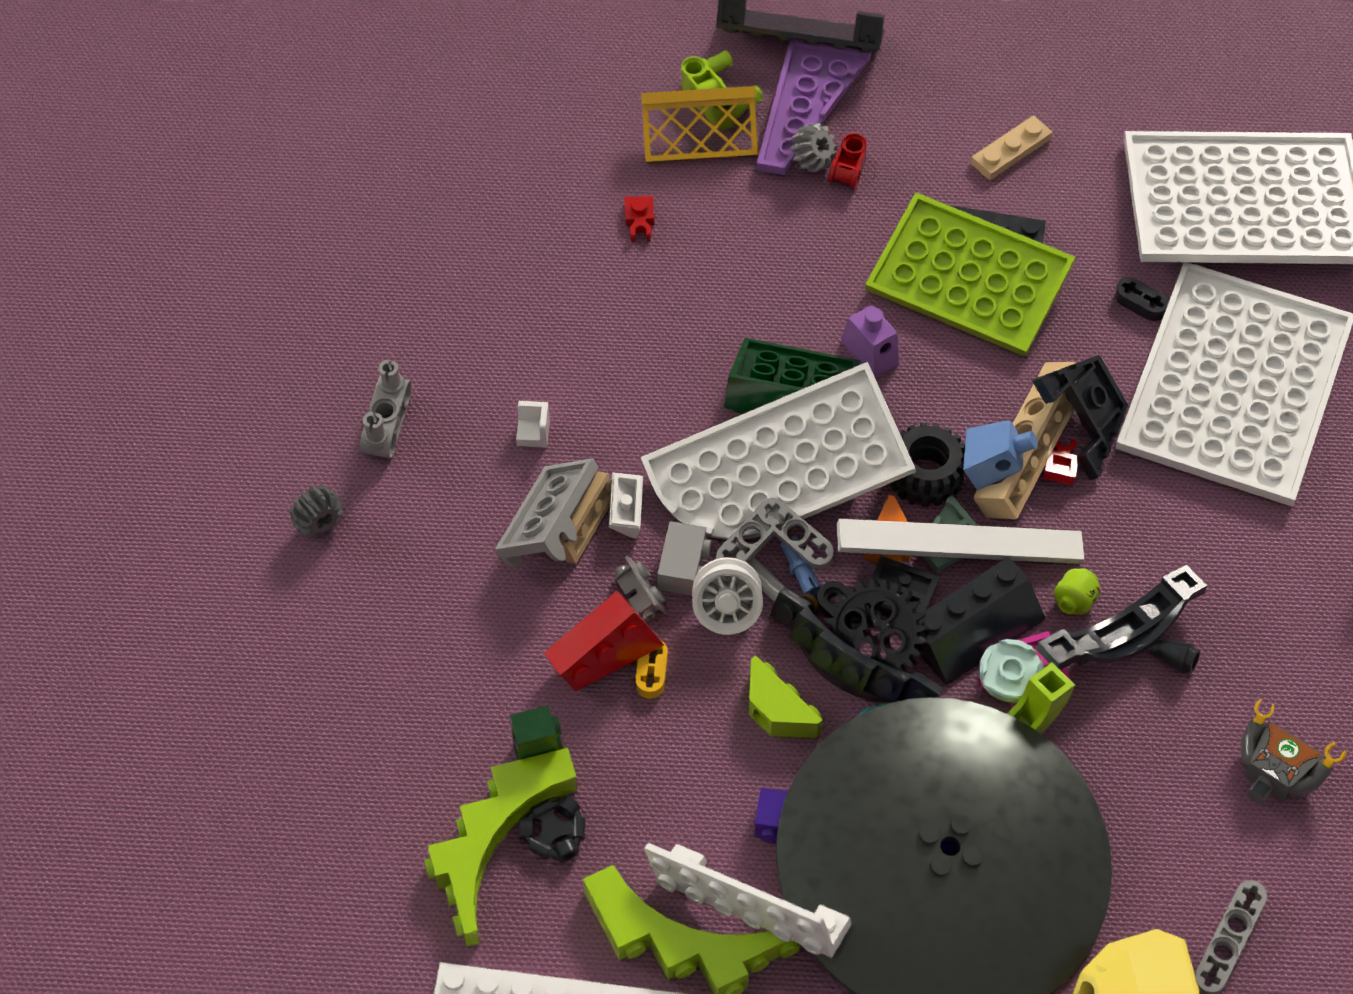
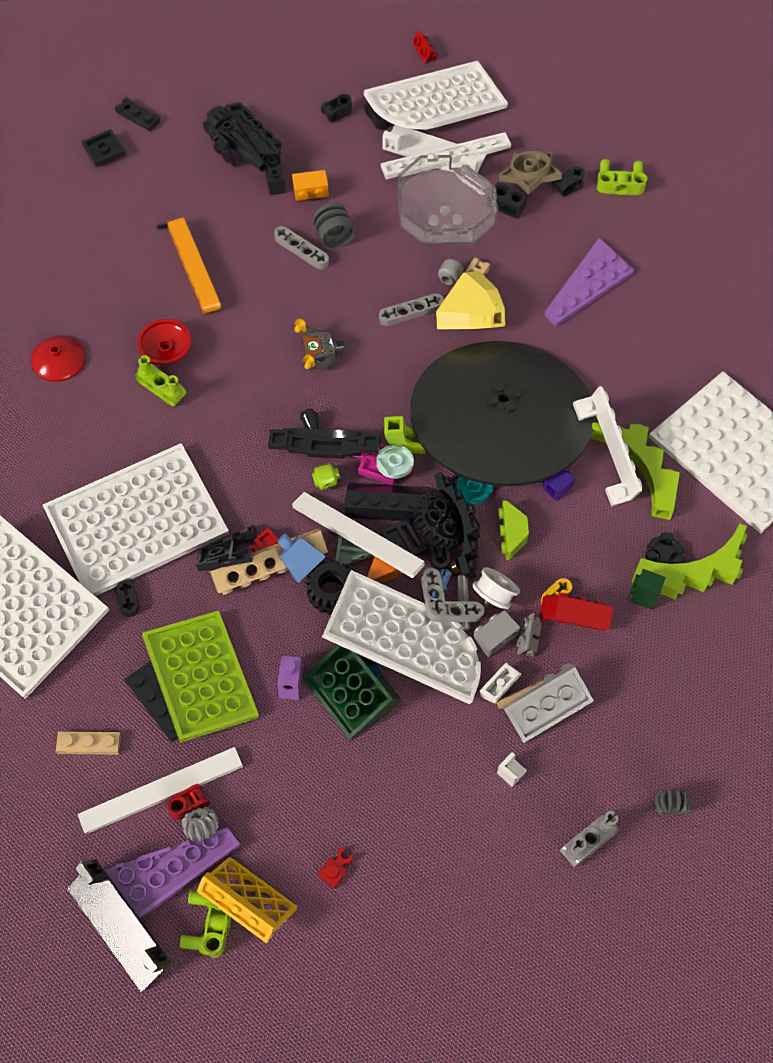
camera: 140 degrees left, 5 degrees up
(888, 161) = (159, 791): none -> white tile

